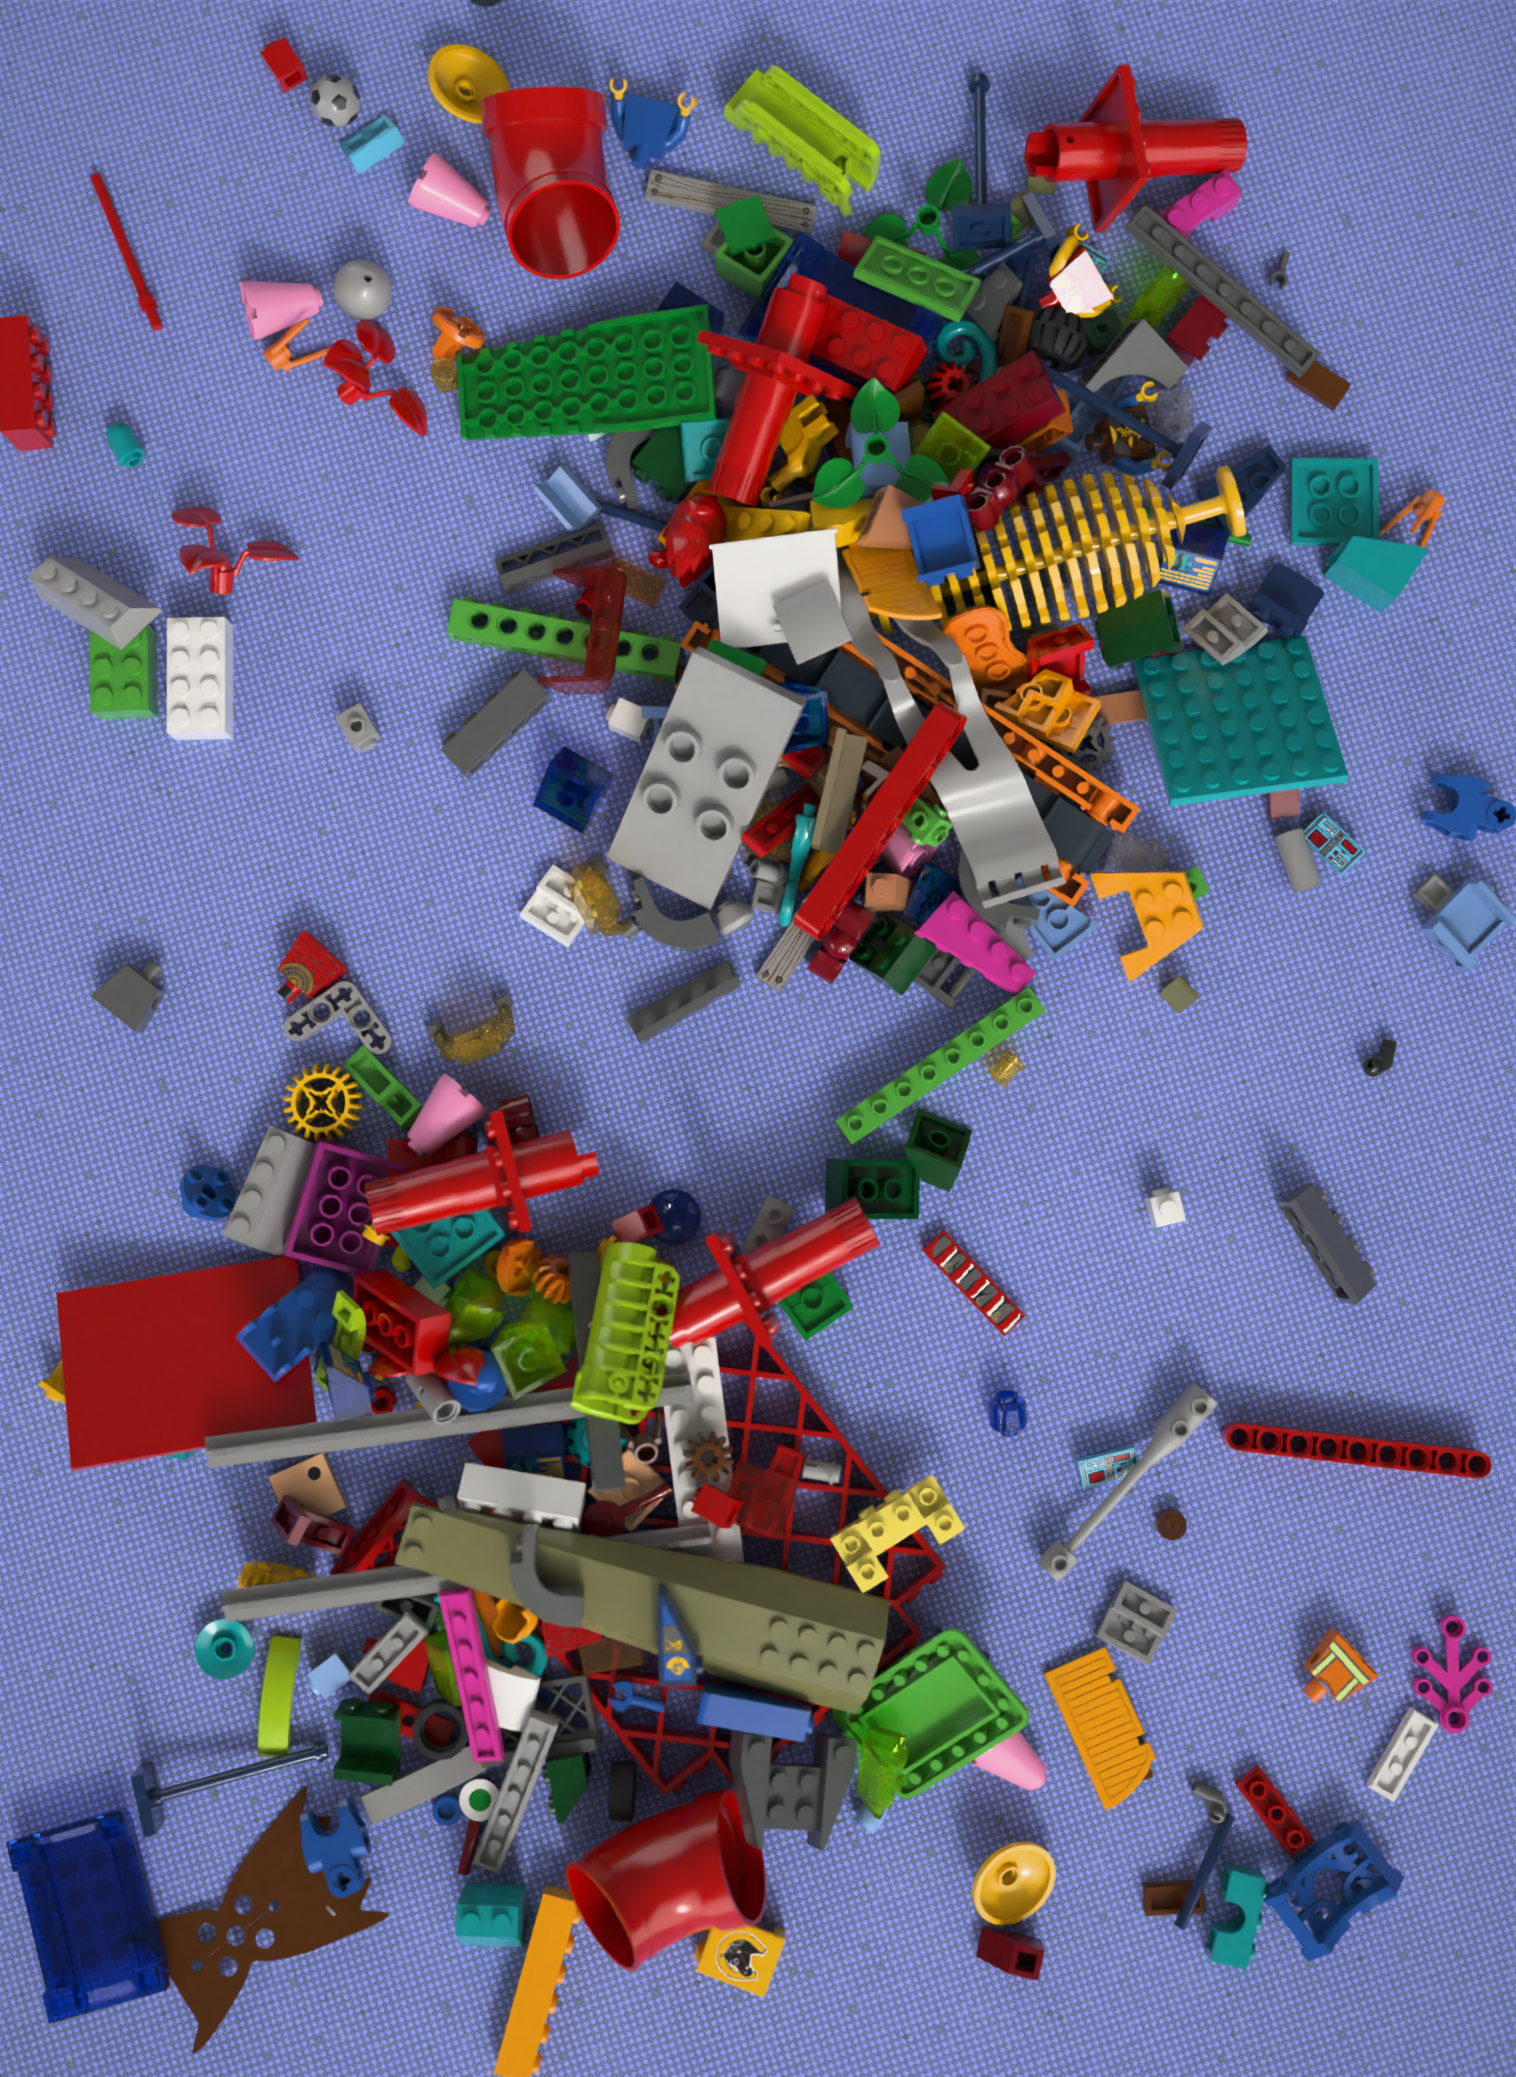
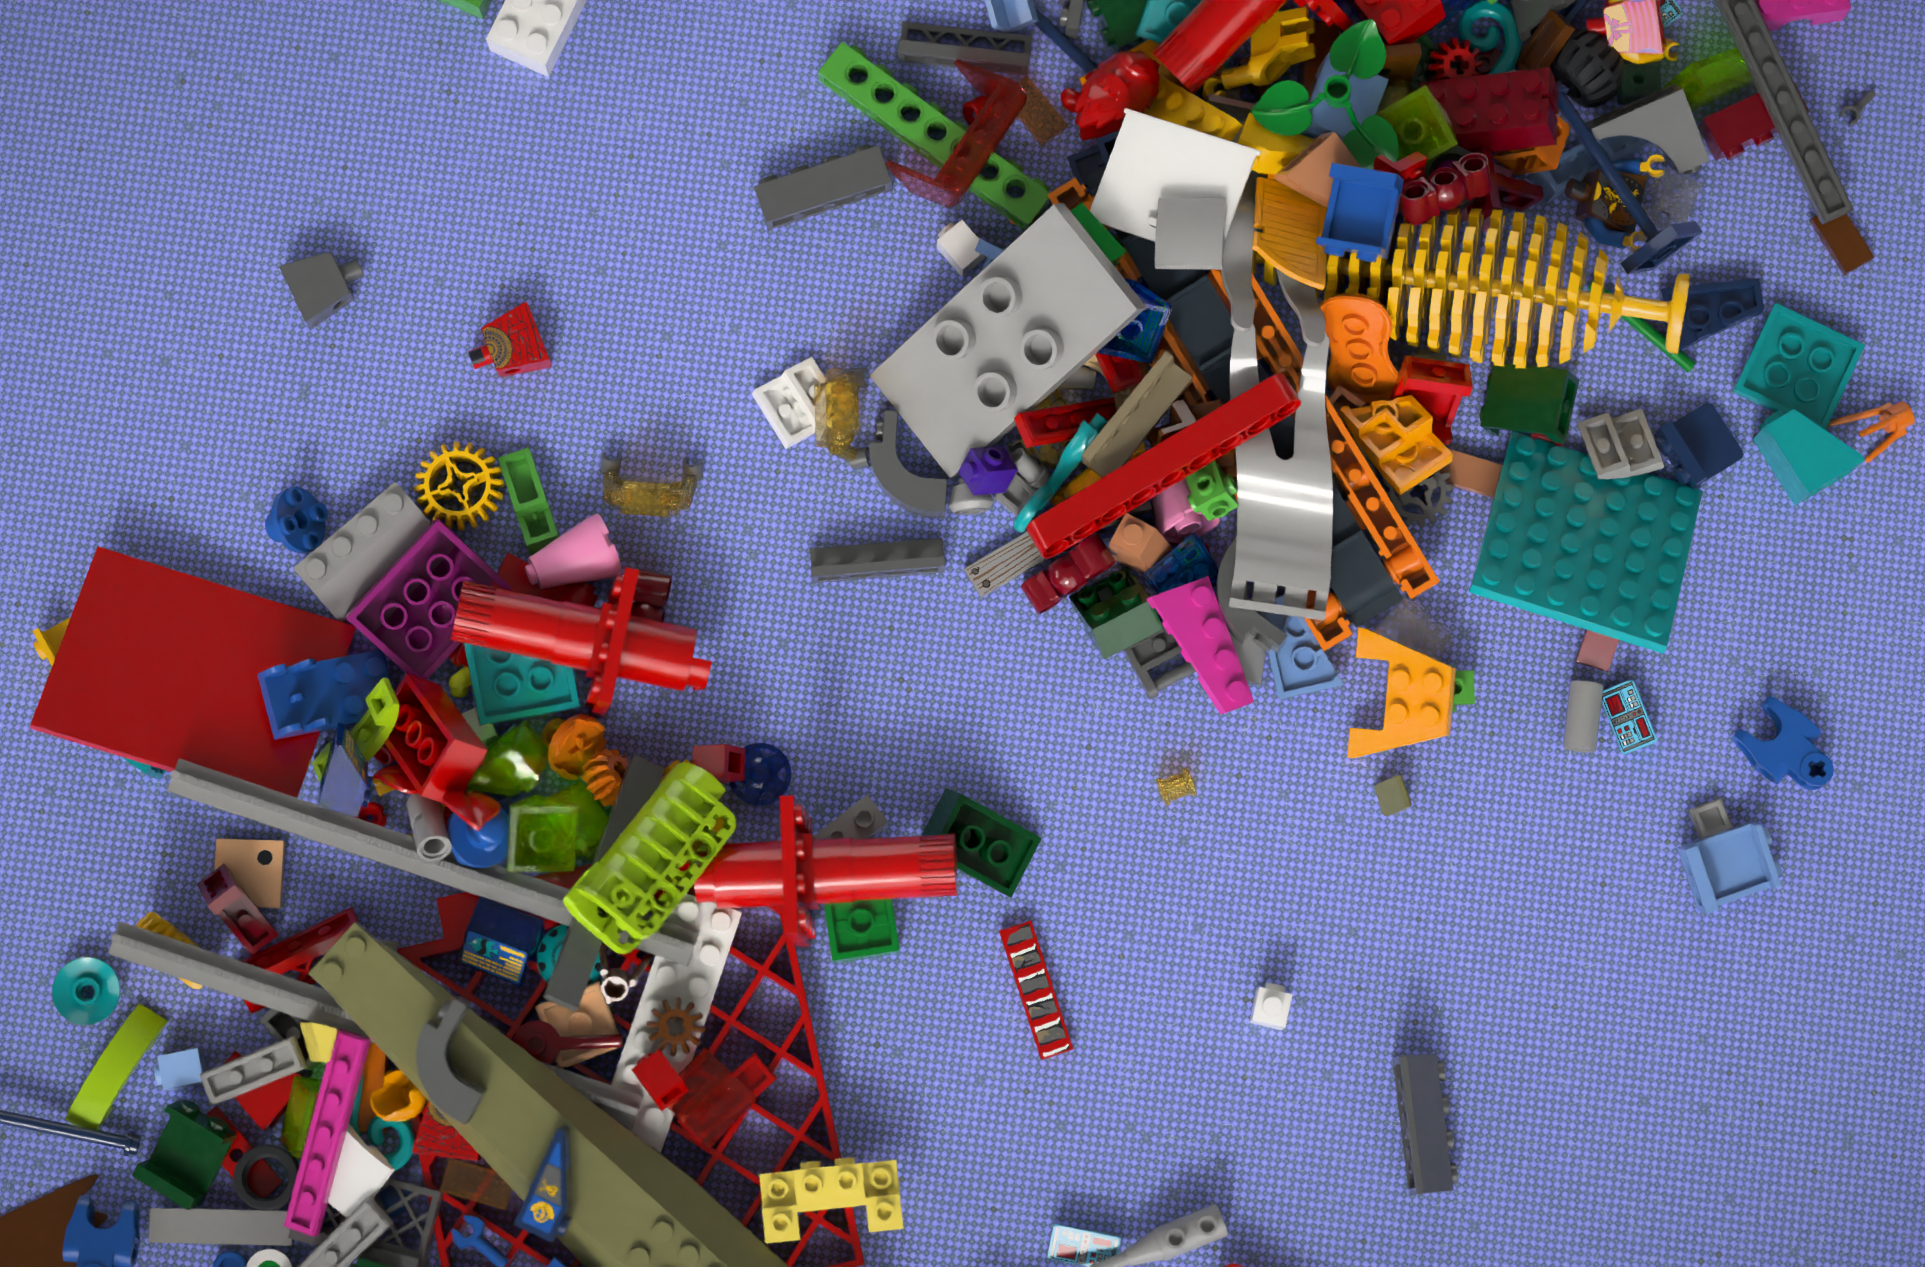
camera: 20 degrees right, 5 degrees down
(348, 1010) = (530, 403): light grey beam -> none
(358, 728) = (681, 126): light grey brick -> none
(370, 1234) = (444, 641): yellow plate -> none
(431, 1607) = (318, 1040): none -> light yellow slope
(522, 1497) = (469, 972): white brick -> none
(572, 789) = (869, 290): clear blue slope -> none
(738, 889) = (988, 470): none -> dark purple brick
(822, 1471) = (785, 1102): light grey pin -> none
(937, 1149) = (1064, 833): dark green slope -> none
(939, 1066) = (1108, 750): bright green brick -> none
(1007, 1413) = (1005, 1140): clear blue head -> none
(1196, 559) = (1622, 356): slope -> none
(1382, 1061) = (1572, 967): pearl dark grey arm -> none

